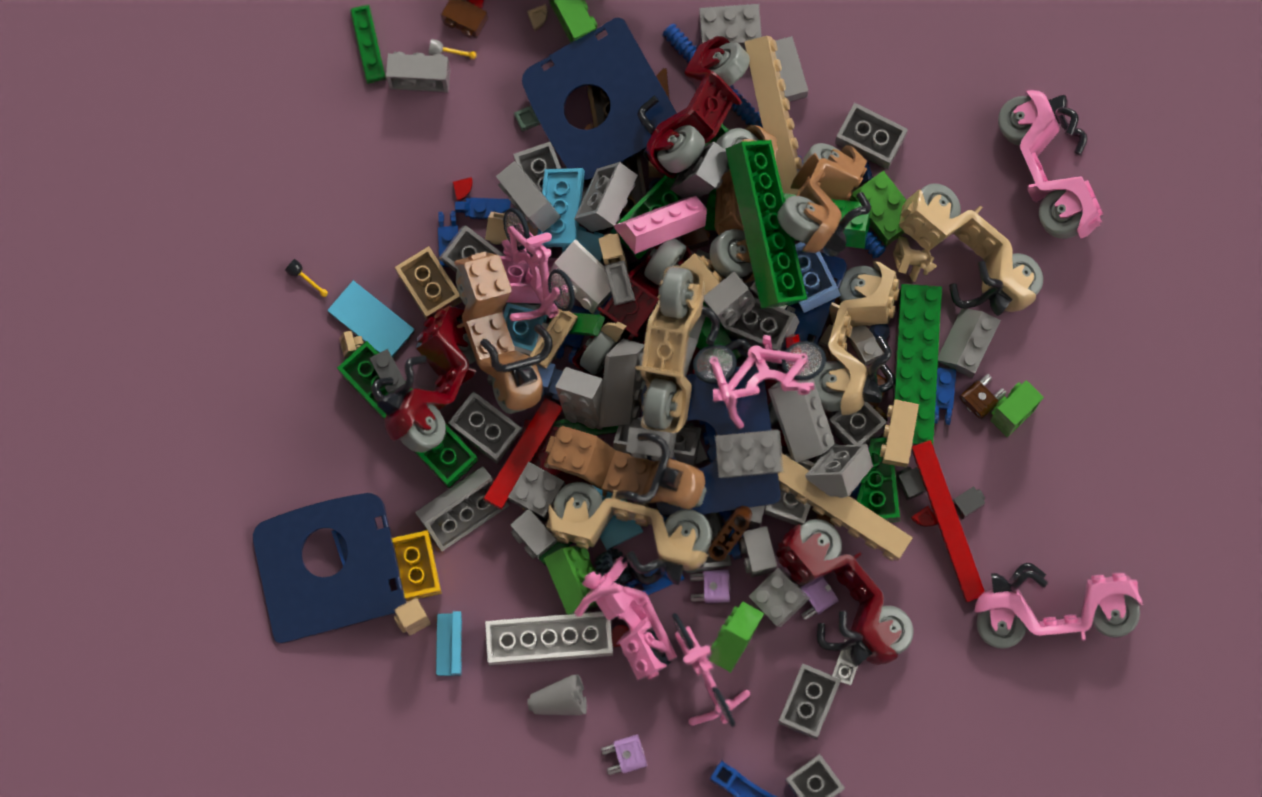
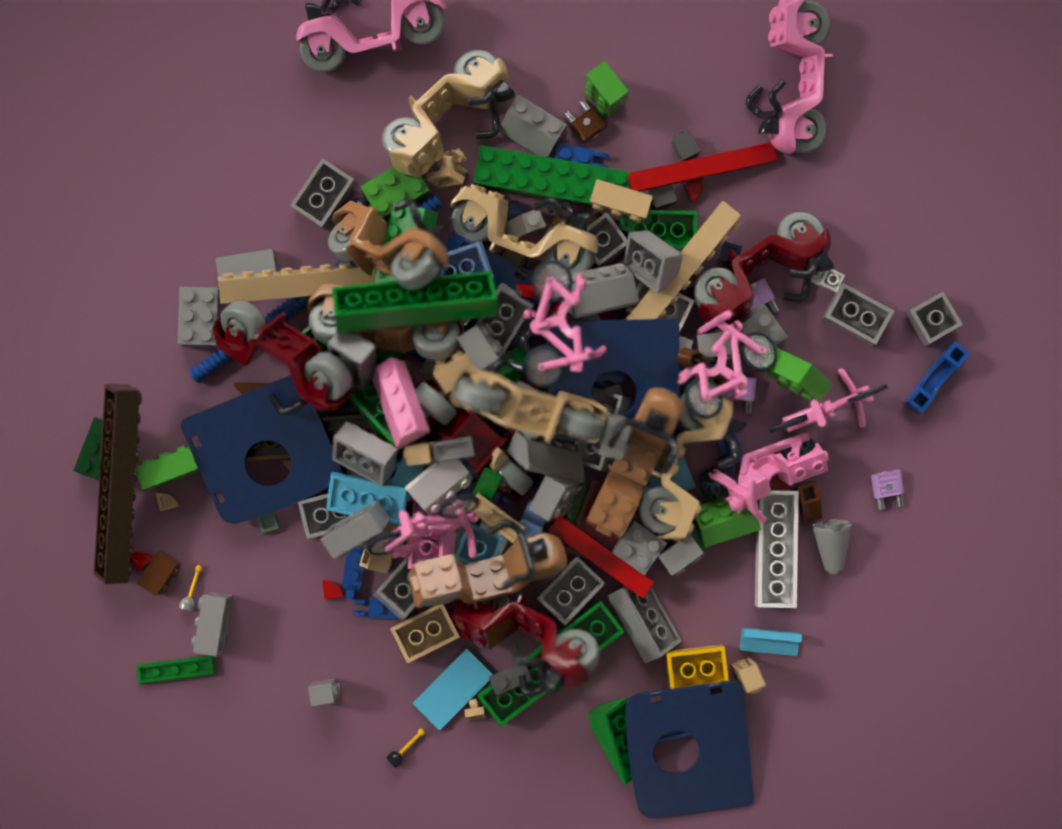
camera: 85 degrees left, 10 degrees up
(343, 481) = (609, 727): none -> green wedge
(357, 188) = (324, 692): none -> light grey brick
(602, 669) = (809, 501): none -> reddish brown slope
(749, 454) = (633, 343): light grey brick -> none
(755, 589) = (757, 351): none -> piece
(863, 560) = (725, 250): none -> dark blue plate

